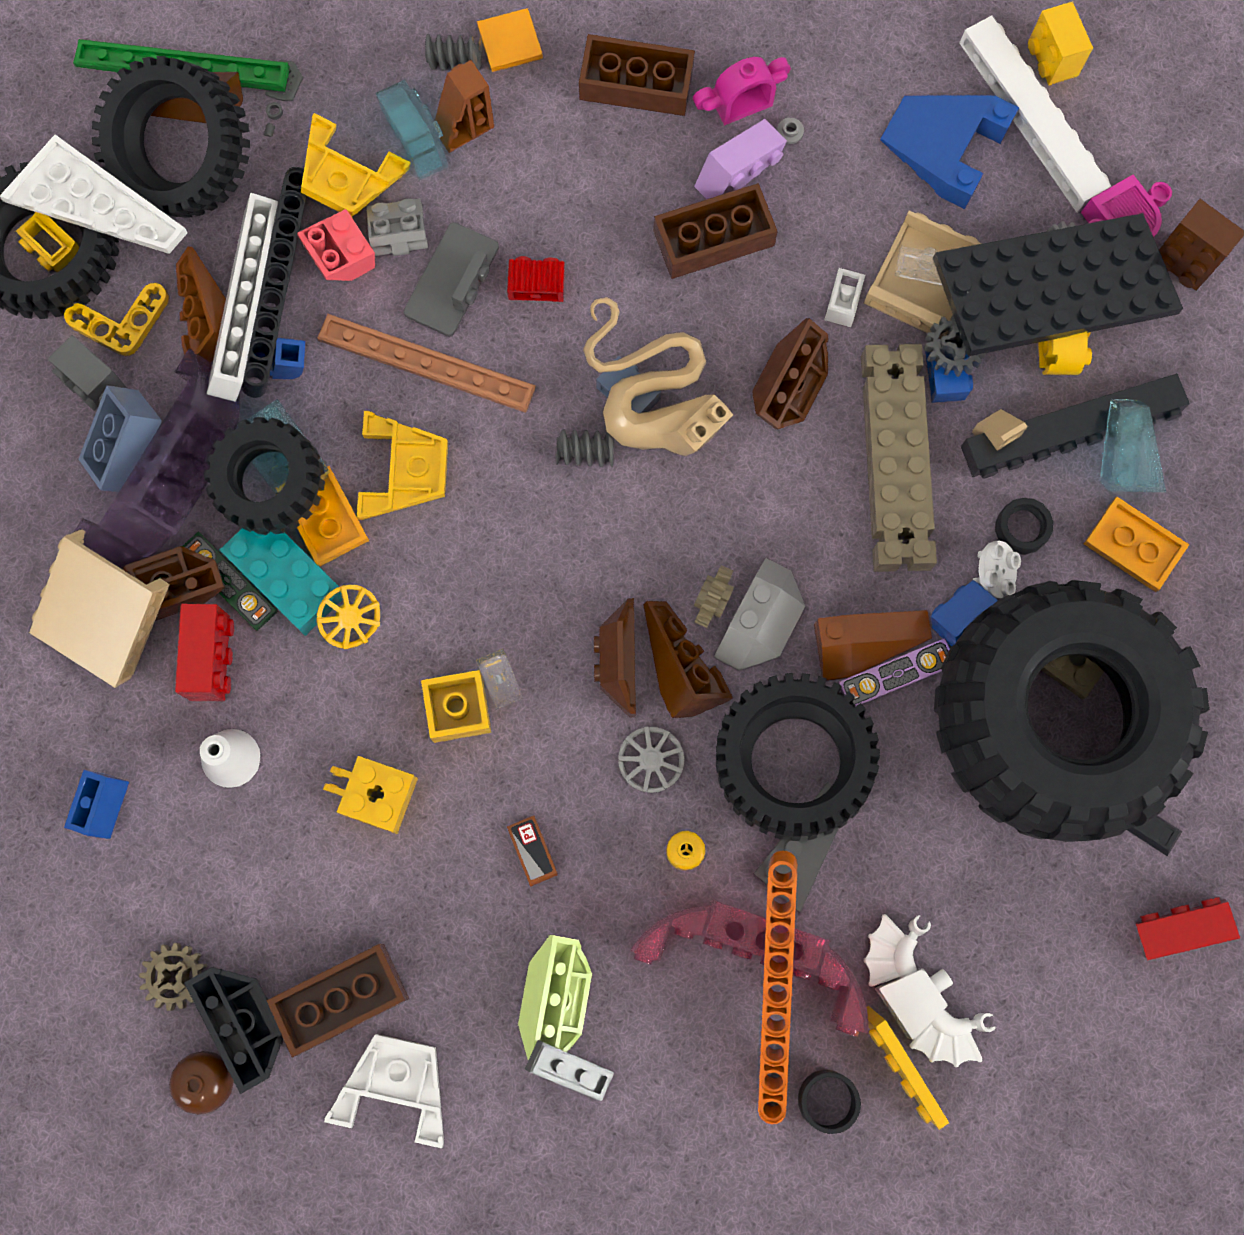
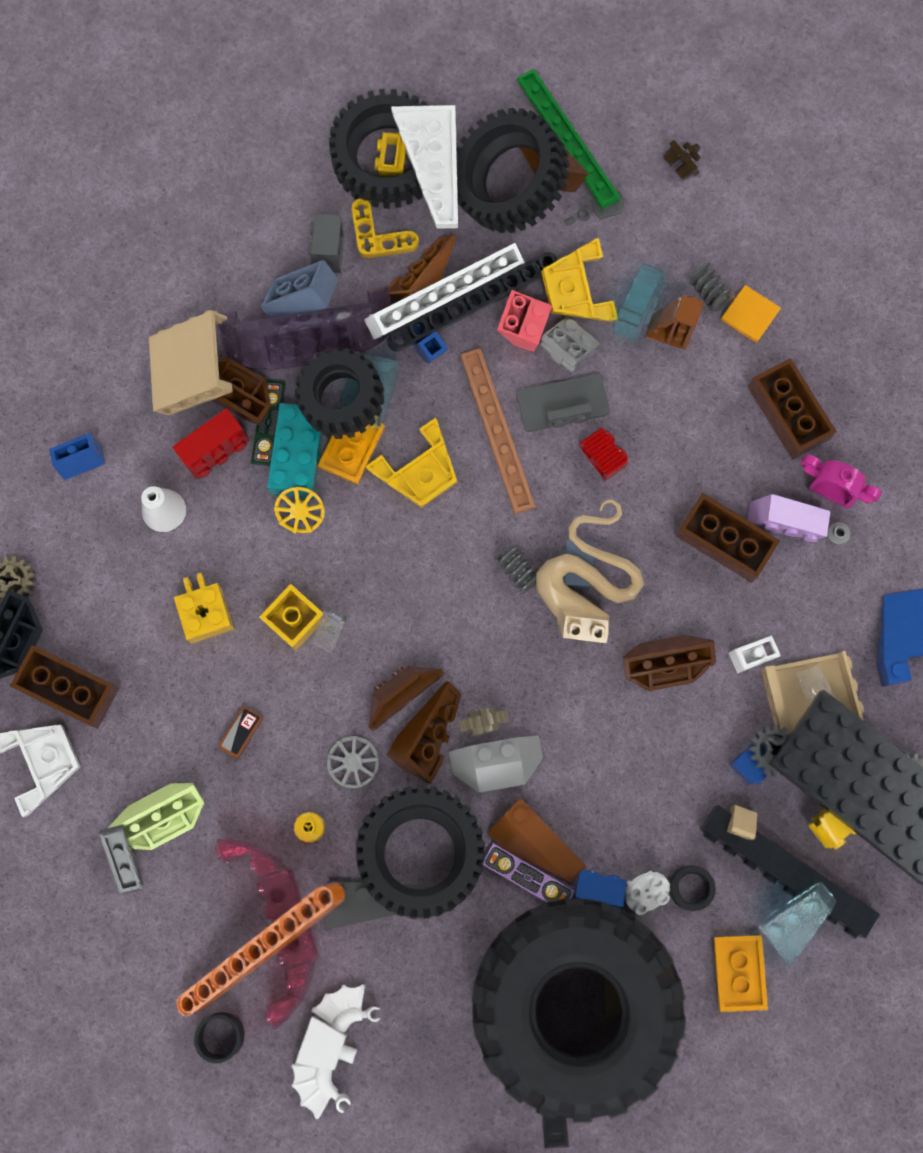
camera: 55 degrees right, 0 degrees up
(898, 458) = (671, 770): dark tan brick -> none
(901, 1063) = (275, 1064): yellow wing -> none

